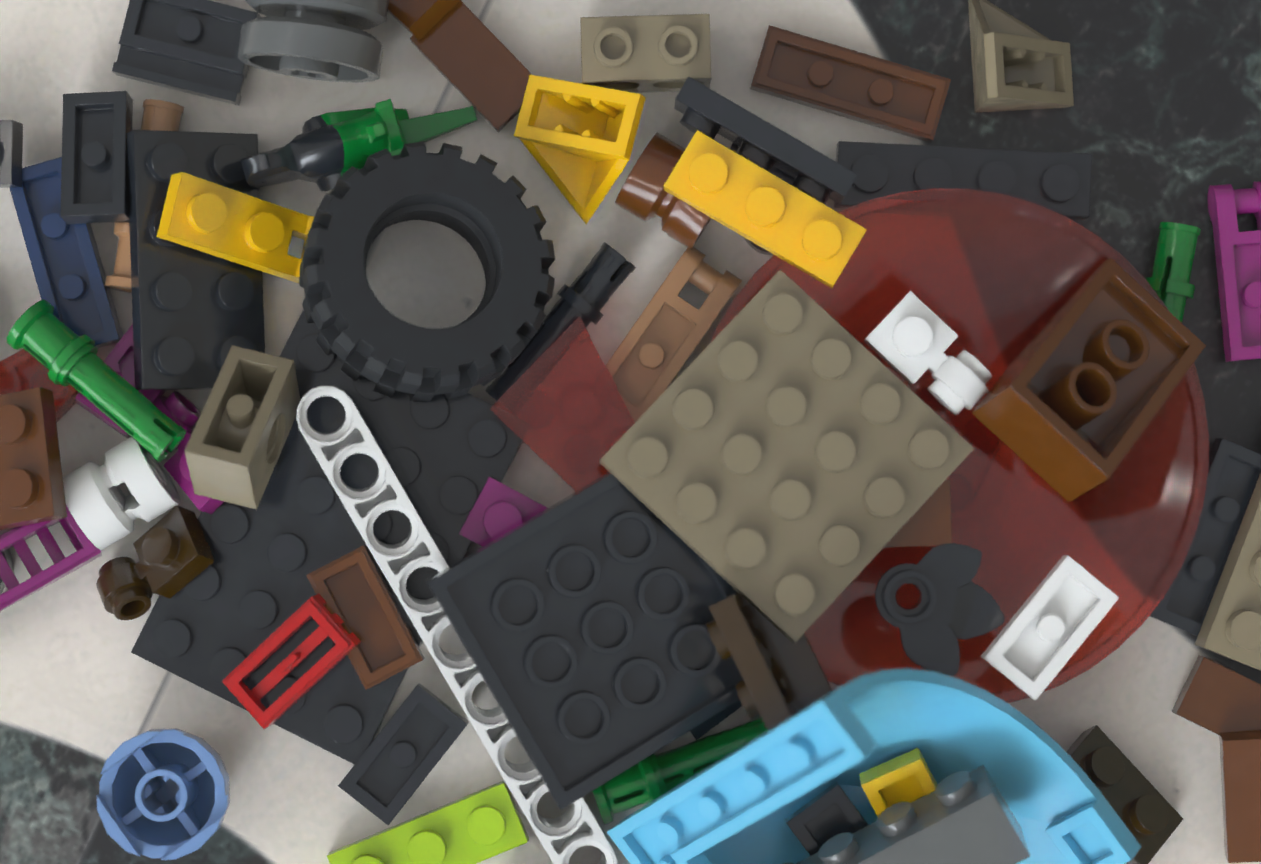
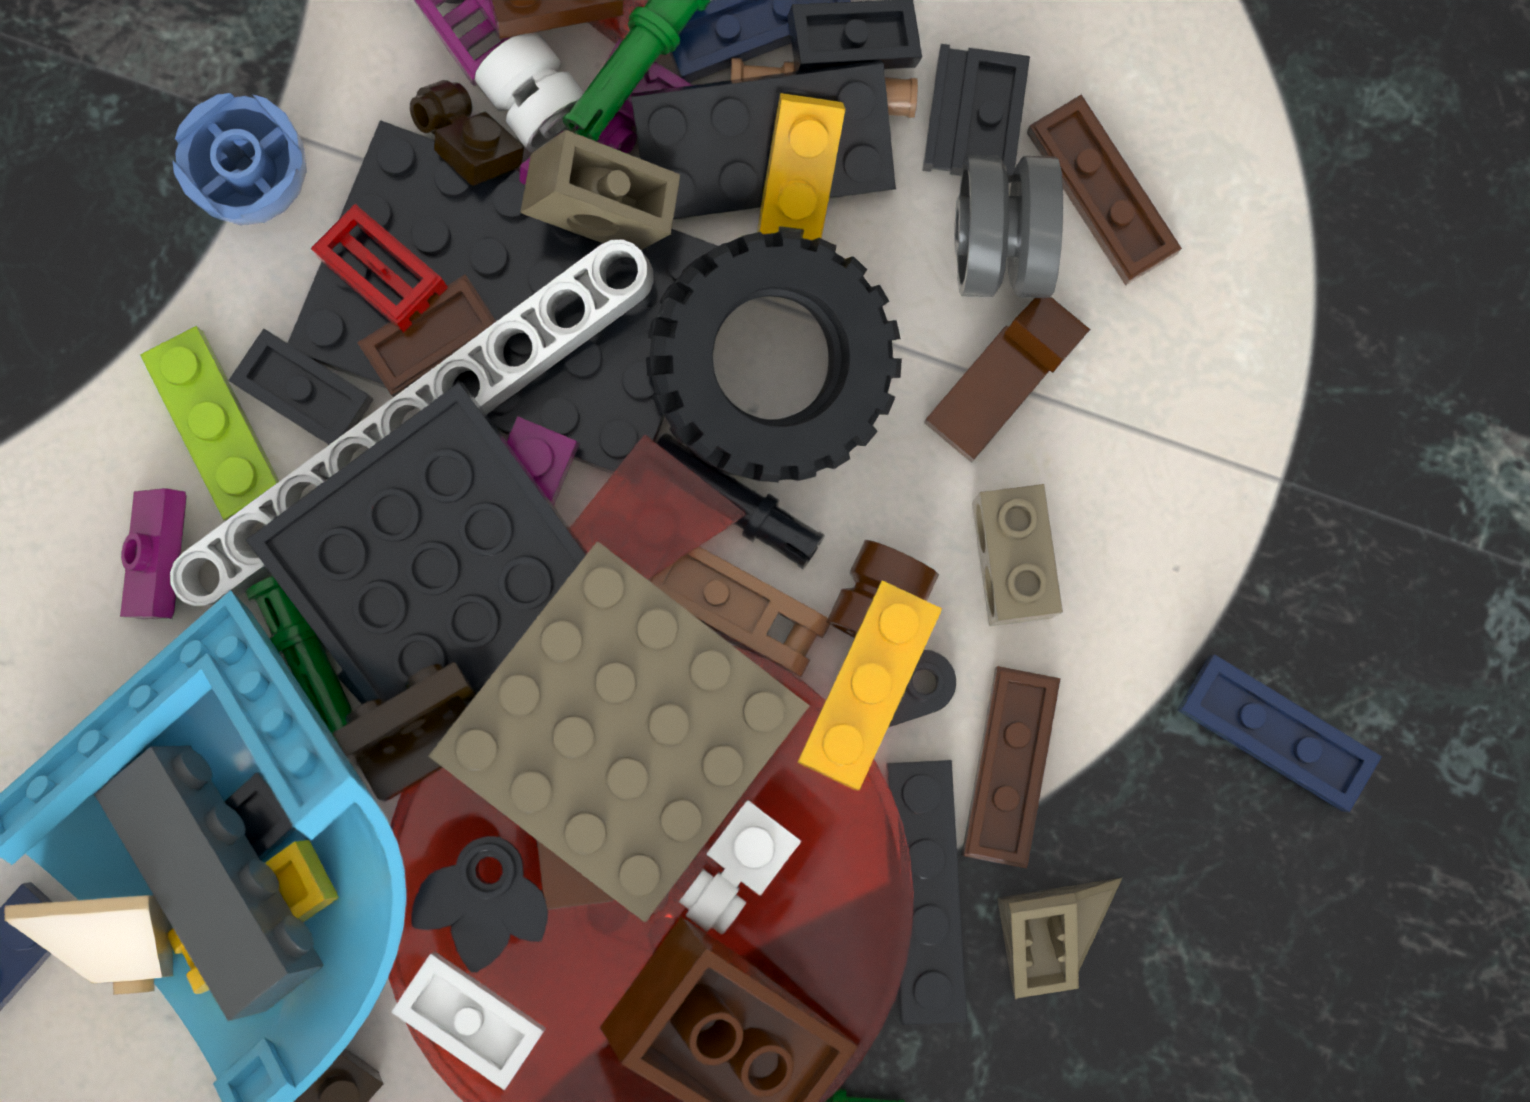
camera: 85 degrees right, 5 degrees down
(345, 140) = (900, 268): animal -> none
(579, 136) = (927, 497): yellow slope -> none
(763, 142) = (937, 679): black plate -> none

